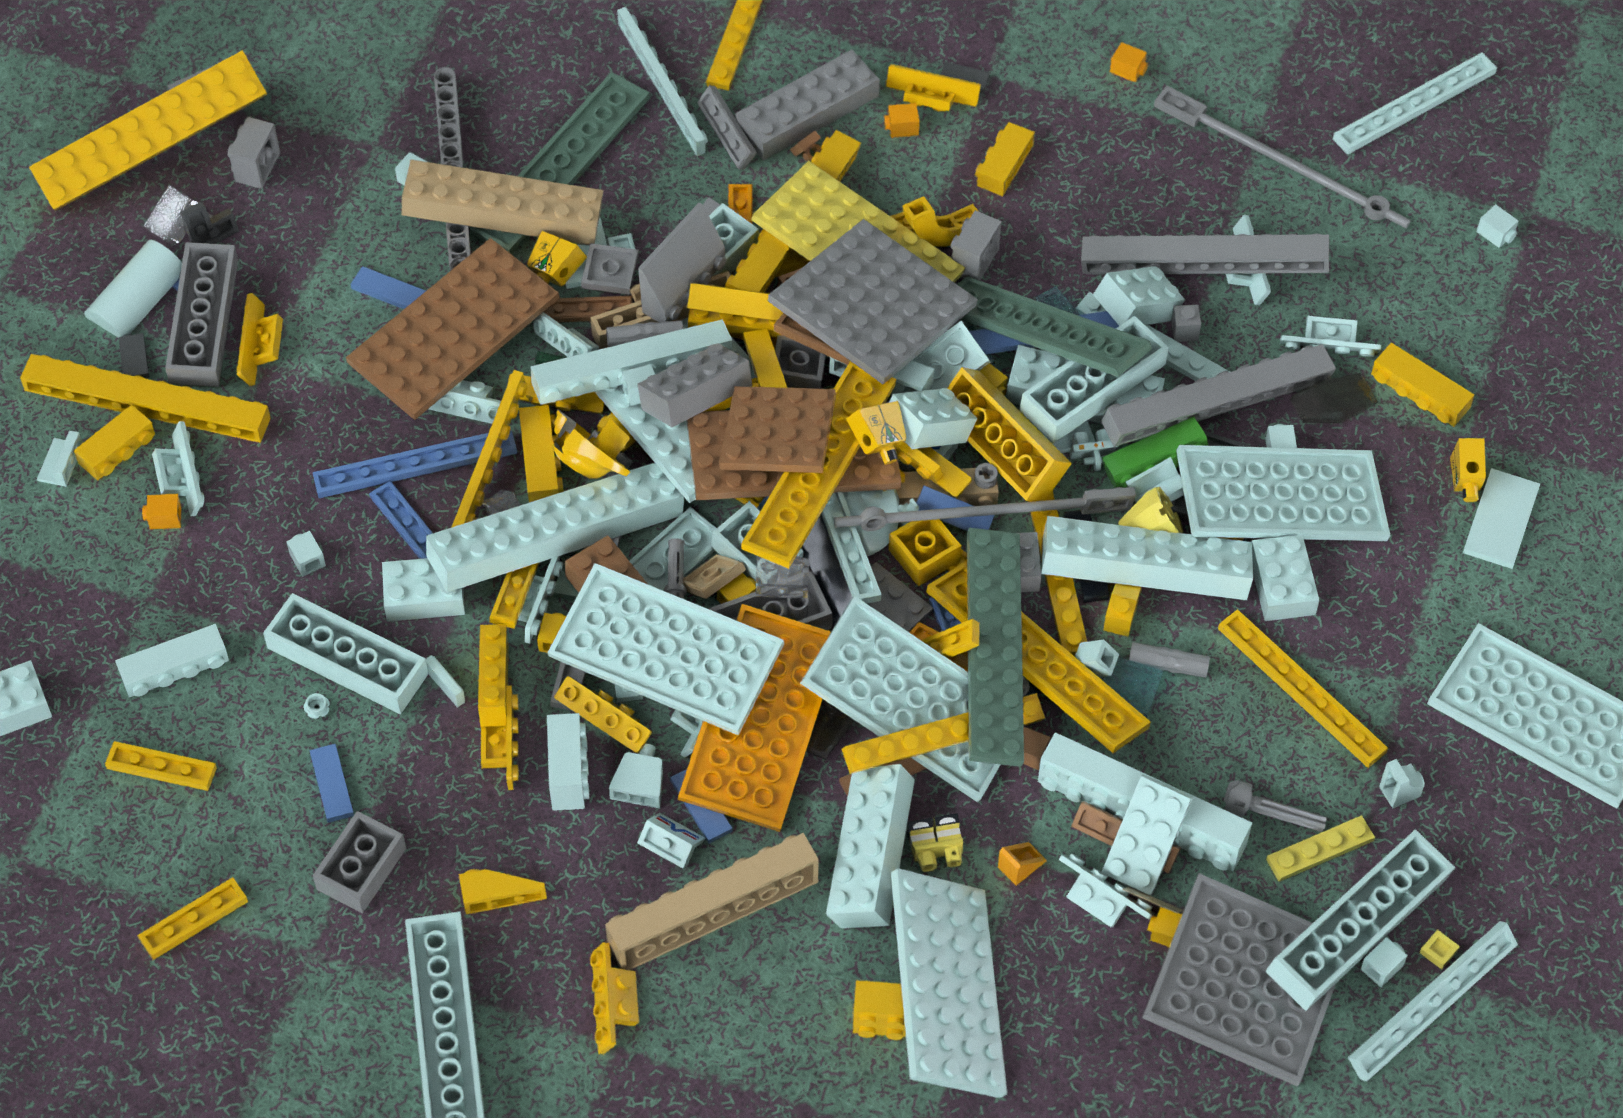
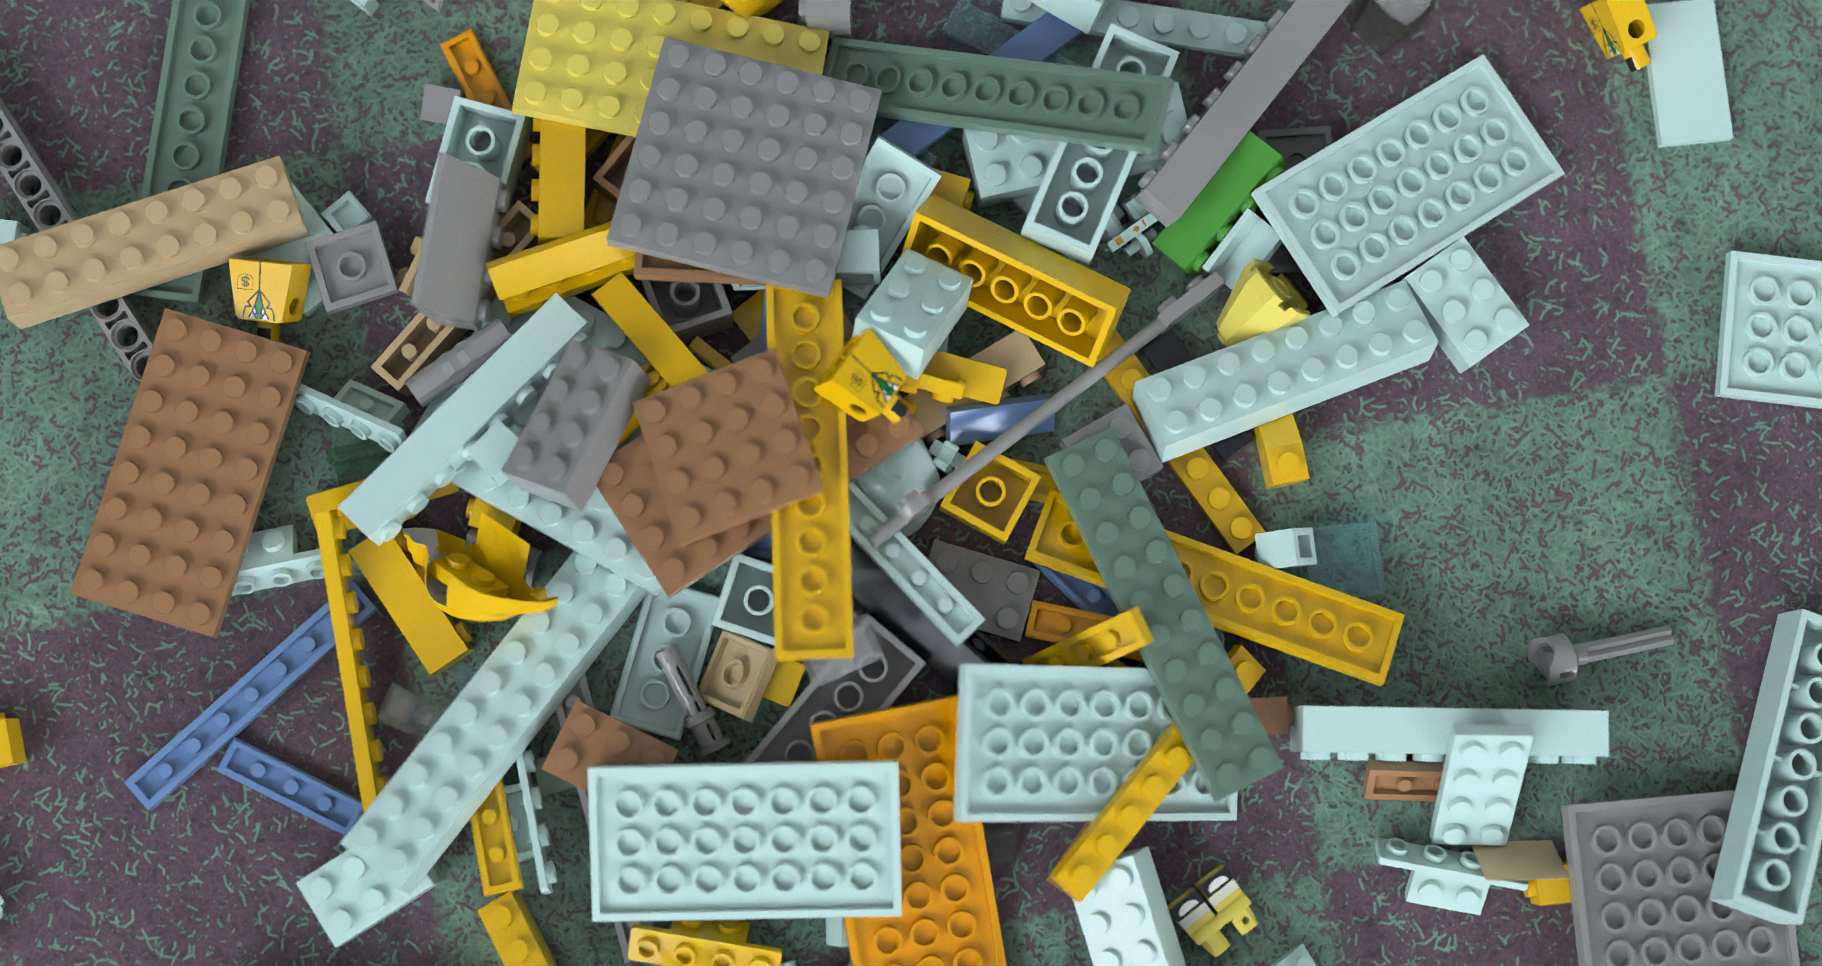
camera: 30 degrees left, 25 degrees up
(306, 553) = (183, 907): light aqua brick -> none
(385, 288) = (65, 440): medium blue tile -> none
(549, 629) = (572, 858): yellow brick -> none
(584, 307) = (357, 335): medium nougat tile -> none
(991, 471) = (1017, 362): light grey bush -> none
(1019, 861) = (1330, 880): light orange slope -> none
(1170, 659) = (1373, 497): light grey axle -> none
(1281, 436) = (1363, 98): light aqua brick -> none
(1303, 688) = (1555, 454): yellow plate -> none
(1320, 848) = (1678, 671): light yellow plate -> none
(1401, 783) = (1743, 536): light aqua arch -> none

